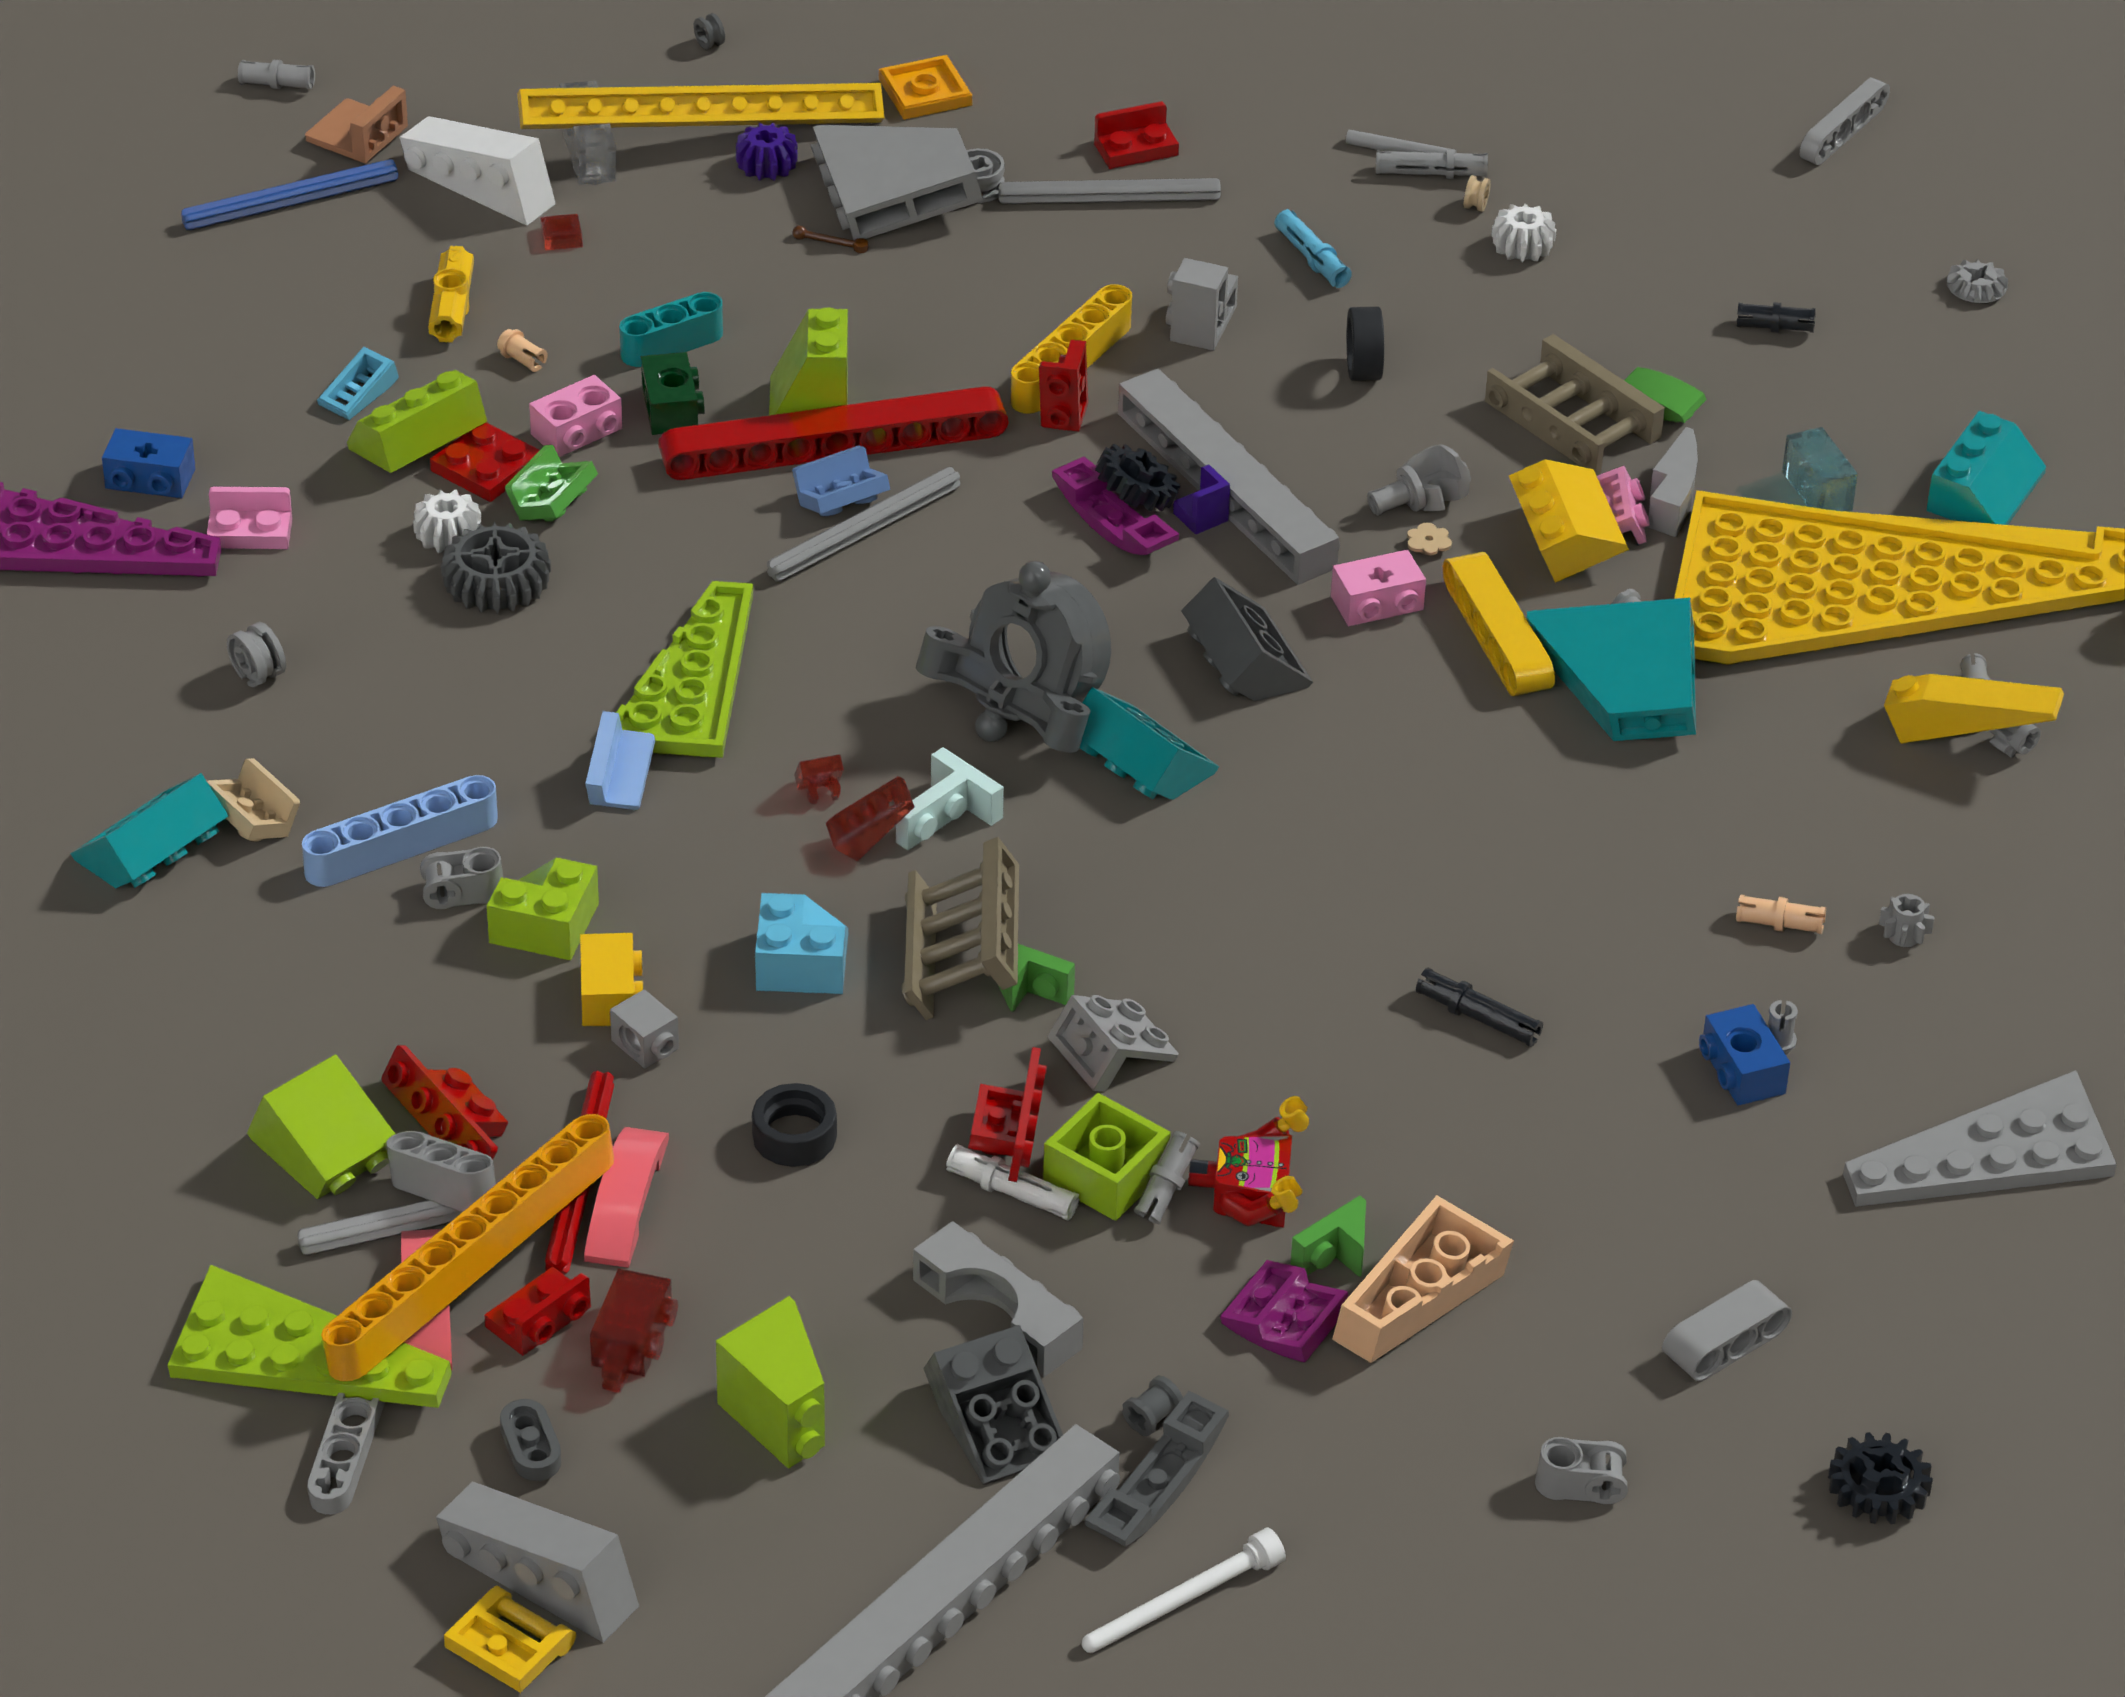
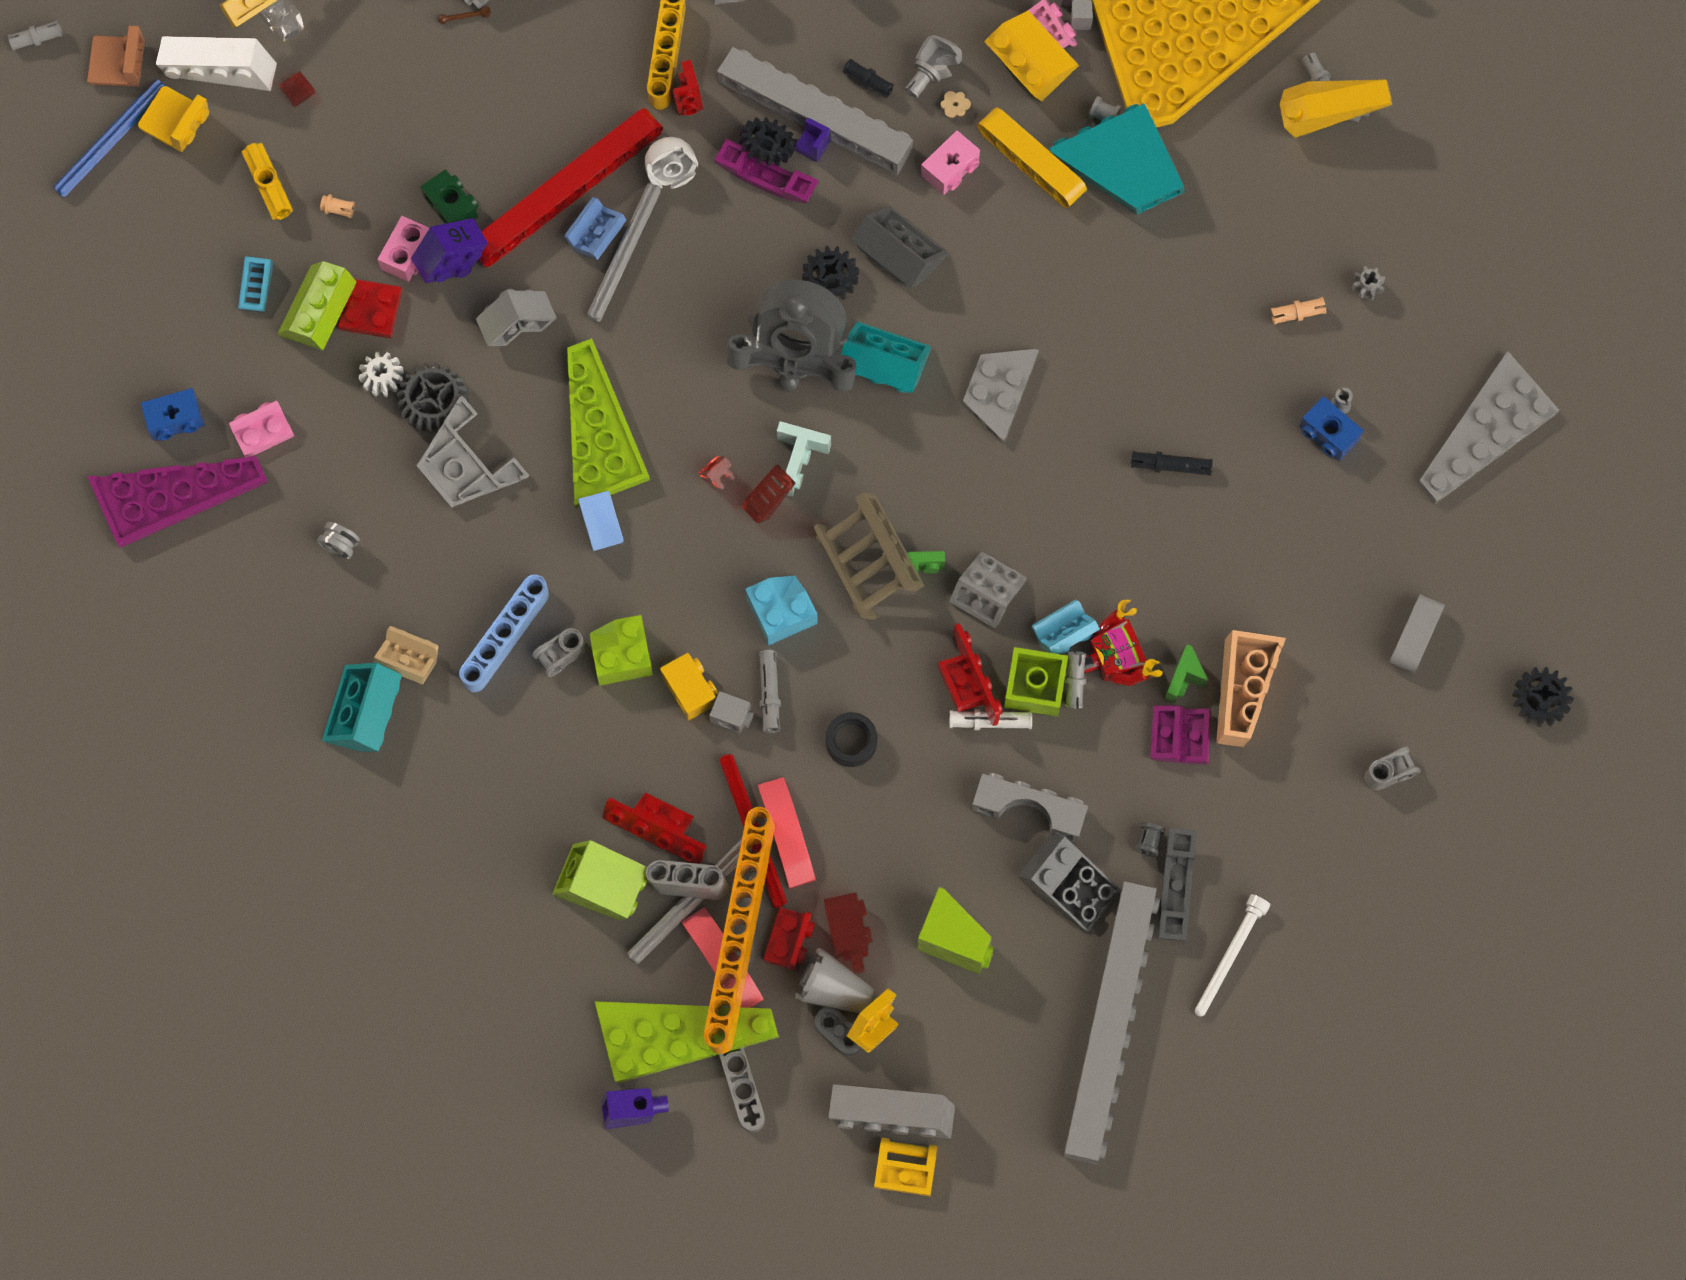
camera: 25 degrees left, 30 degrees up
(162, 1391) = (620, 1111): none -> dark purple torso
(386, 200) = (174, 118): none -> yellow bracket
(469, 645) = (456, 469): none -> light grey wing
(548, 485) = (425, 315): bright green bracket -> none
(558, 1371) = (833, 985): none -> light grey cone
(586, 1430) = (874, 1022): none -> yellow bracket
(627, 420) = (449, 251): none -> dark purple brick
(670, 514) = (514, 314): none -> light grey brick
(672, 327) = (418, 157): teal beam -> none
(712, 1039) = (769, 684): none -> light grey pin
(813, 365) = (531, 152): lime slope -> none
(989, 451) = (670, 162): none -> white cylinder
(1137, 638) = (829, 263): none -> black gear
(1197, 1115) = (1064, 628): none -> medium azure bracket
(1285, 841) = (998, 388): none -> light grey wing
(1324, 471) = (868, 78): none -> black pin

